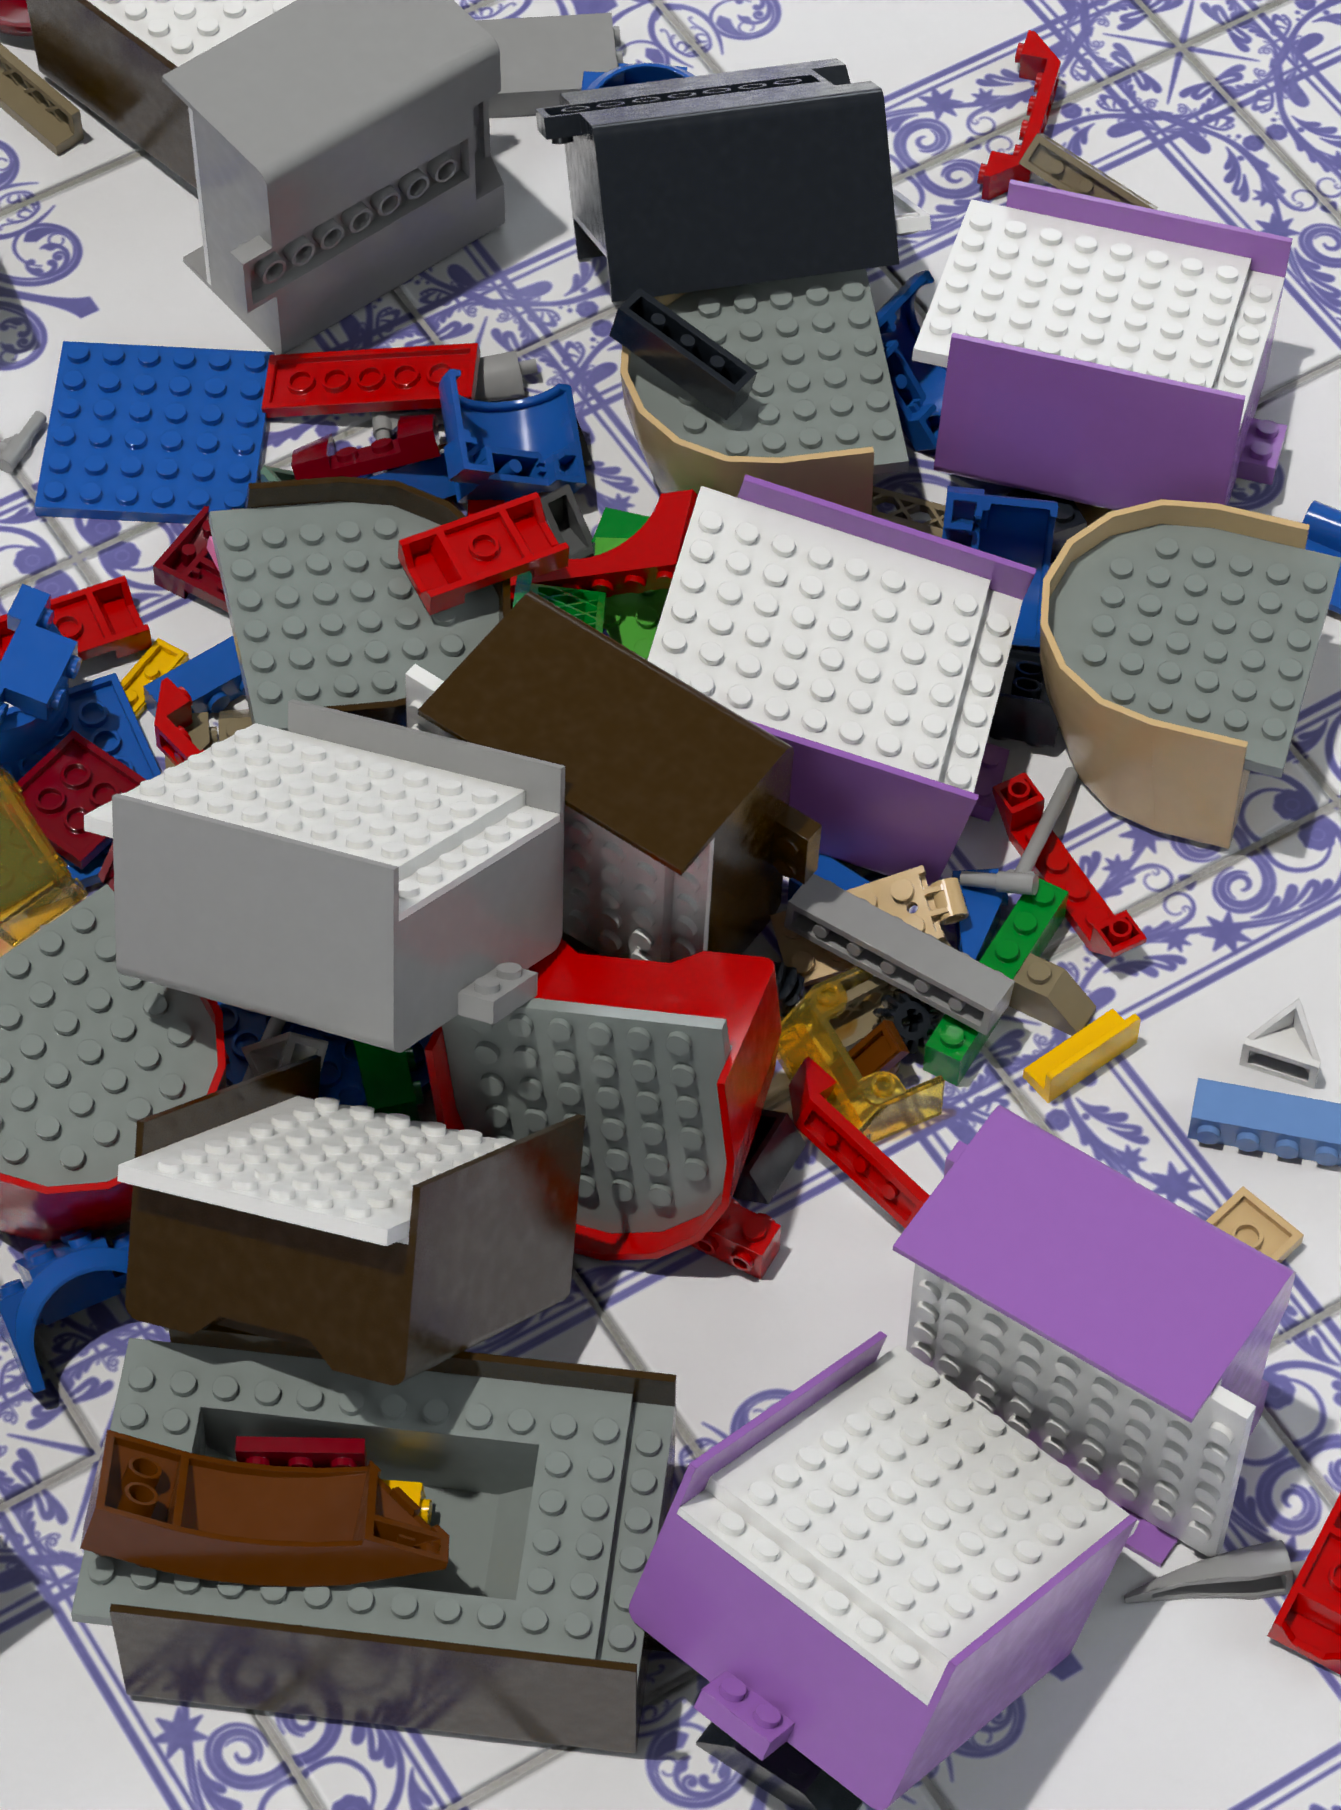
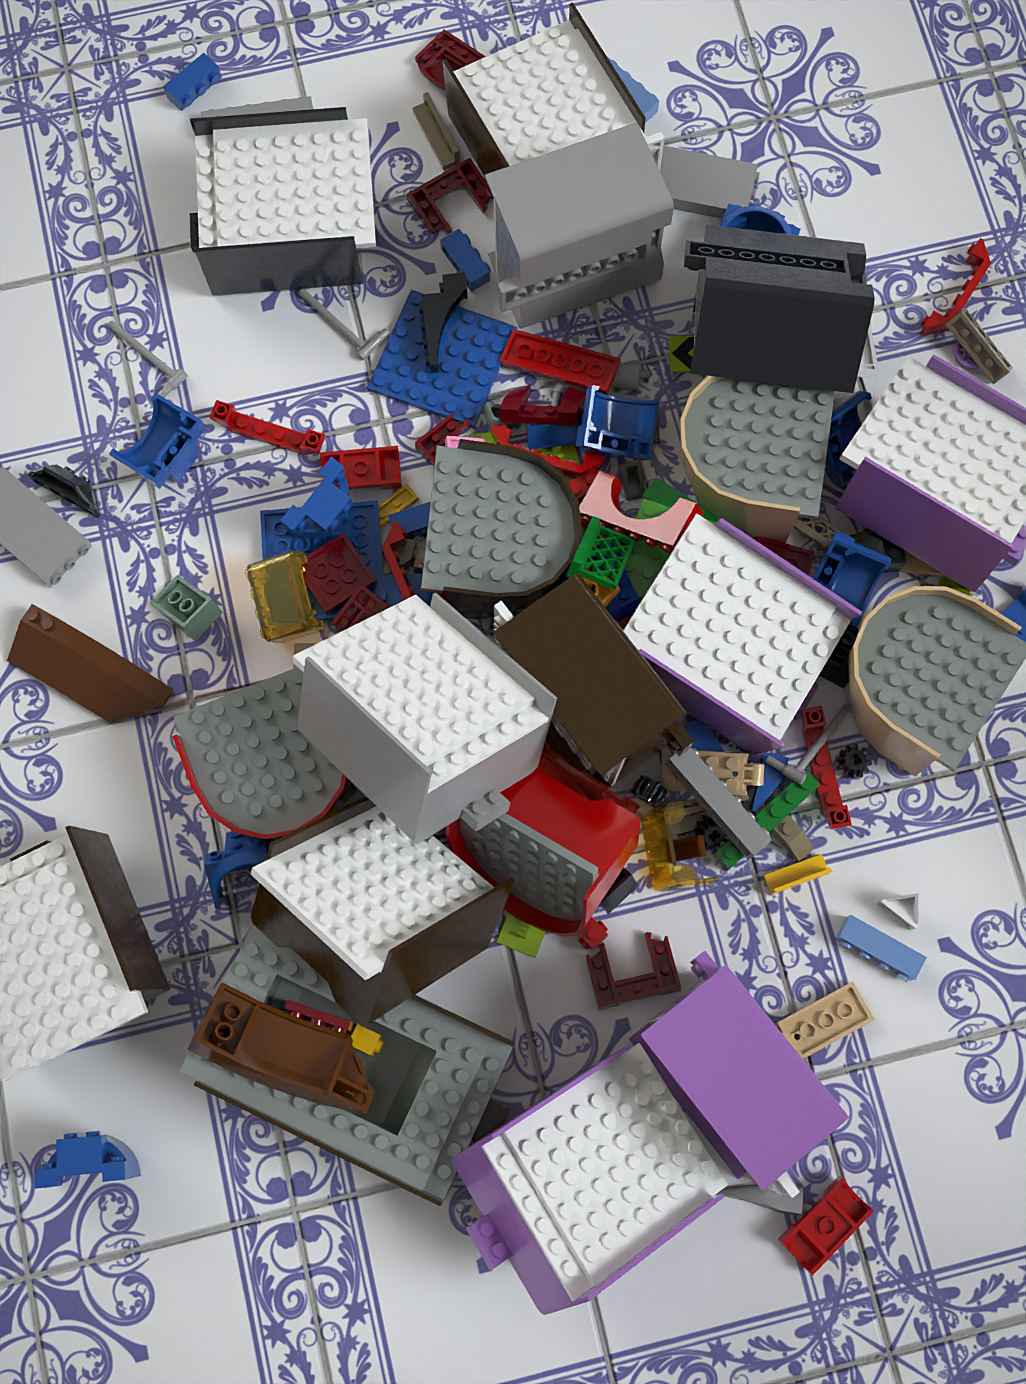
camera: 20 degrees right, 20 degrees up
(102, 147) = (463, 174): none -> dark red wedge
(125, 355) = (437, 312): none -> black arch
(146, 274) = (465, 259): none -> blue brick
(480, 552) = (571, 513): red piece -> none
(586, 317) = (681, 353): none -> piece
(623, 1288) = (520, 936): none -> lime piece
(683, 353) = (716, 421): black brick -> none
(817, 1329) = (661, 981): none -> dark red wedge
(849, 1146) = (658, 904): red slope -> none
(1114, 851) = (849, 767): none -> black gear

